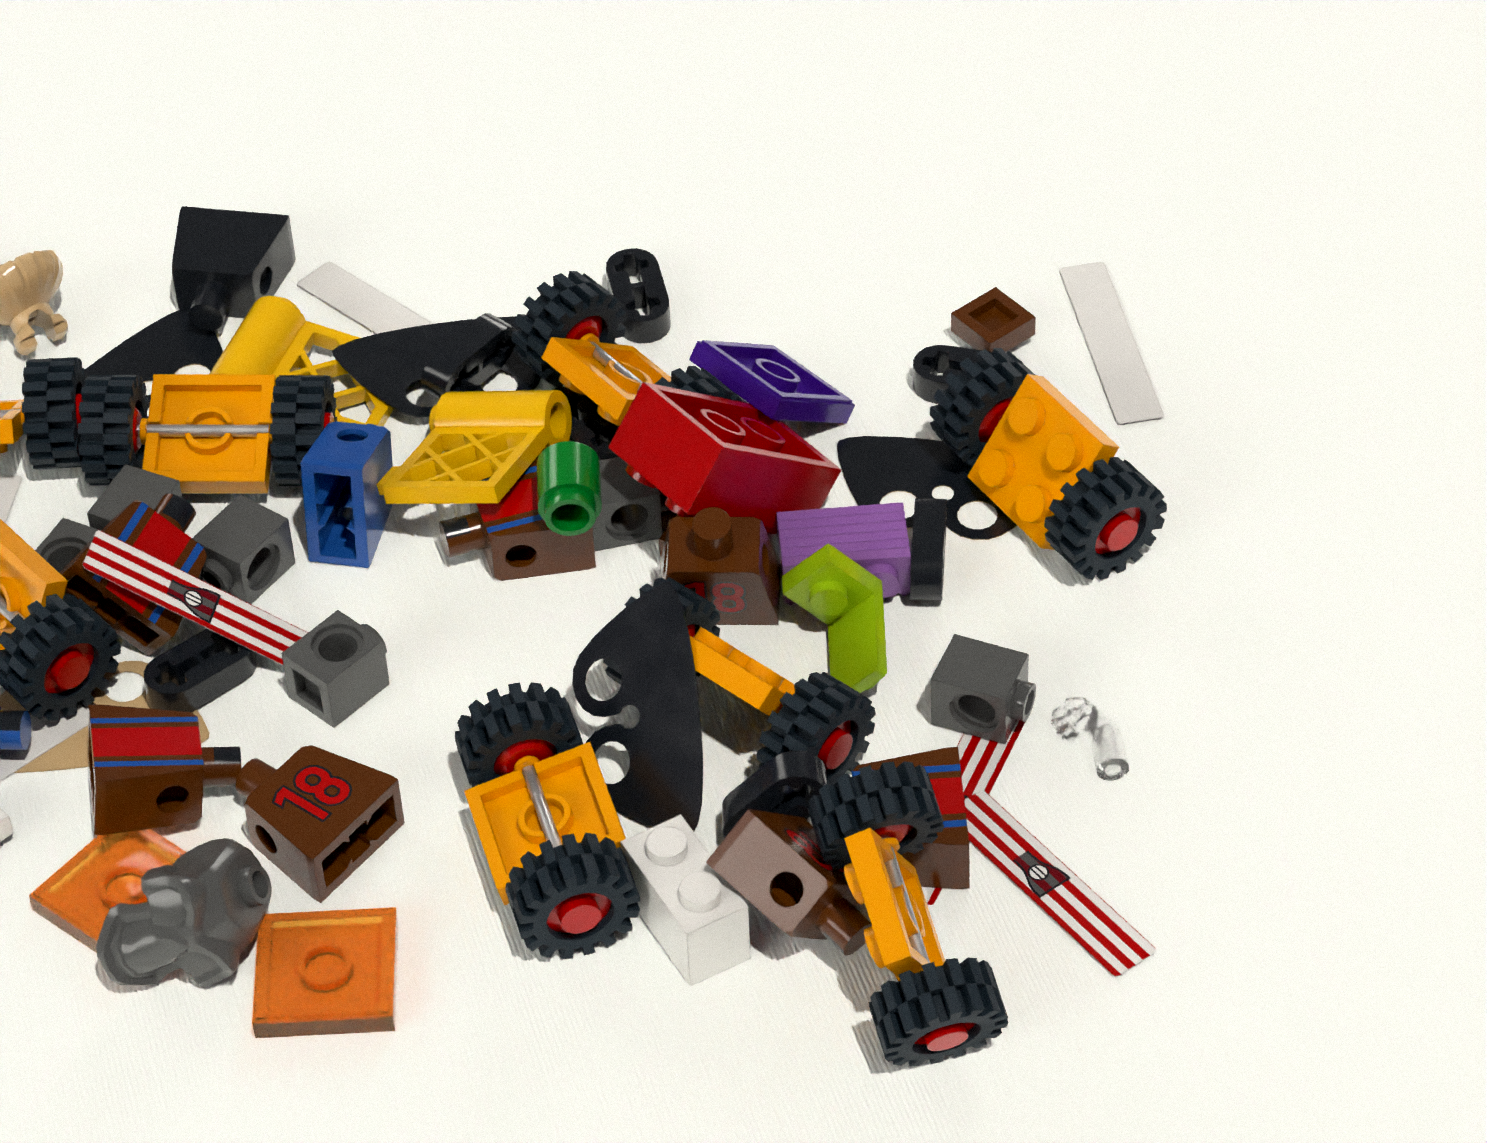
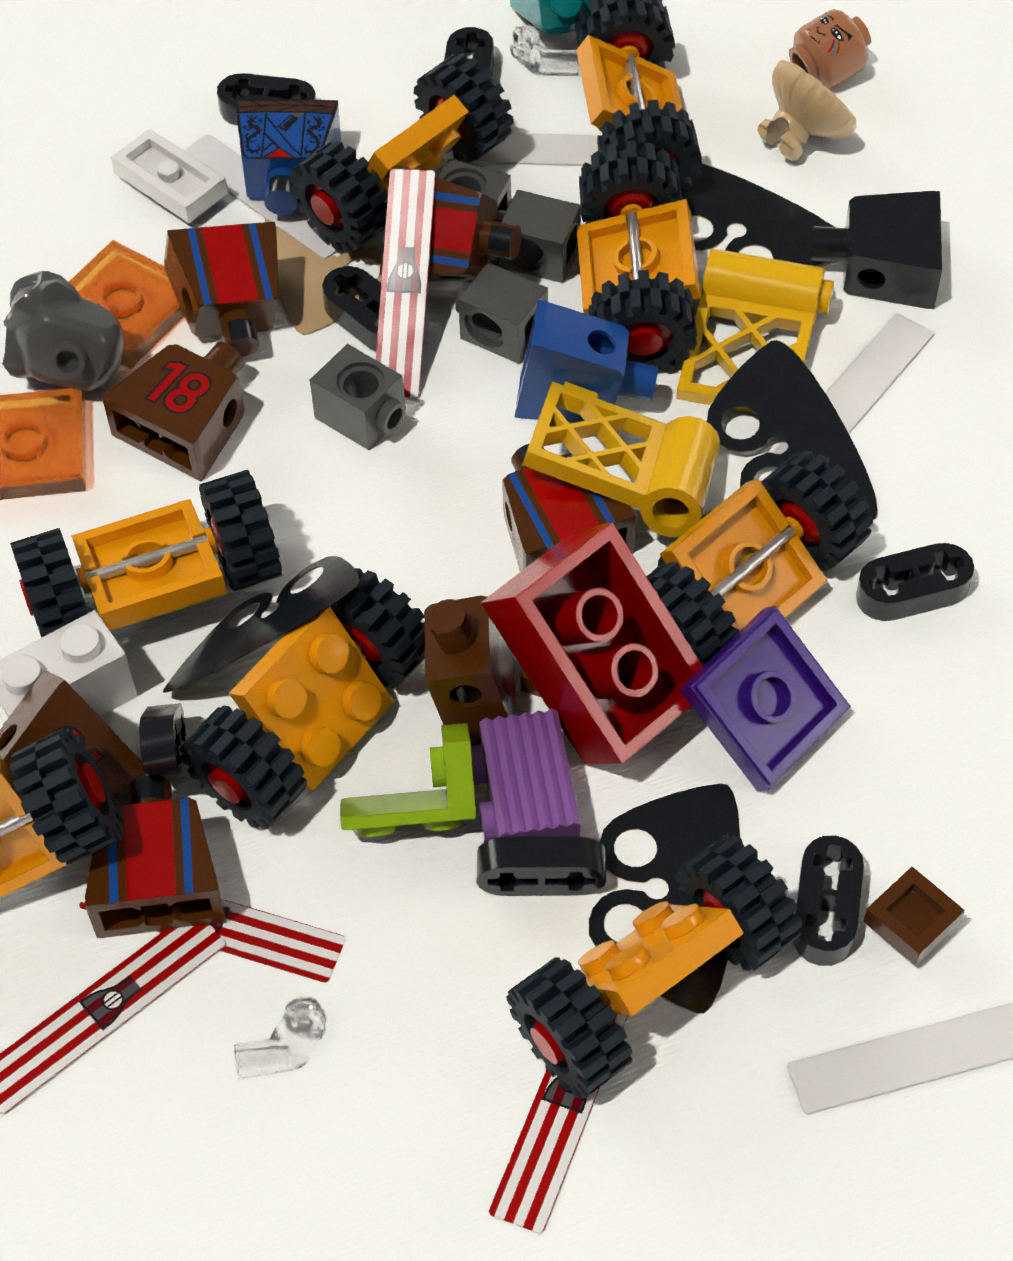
camera: 85 degrees right, 10 degrees up
(469, 357) = (764, 434): black beam -> none
(569, 487) = (542, 515): green brick -> none
(981, 689) = (330, 922): dark grey brick -> none
(1197, 577) = (543, 1154): none -> sticker

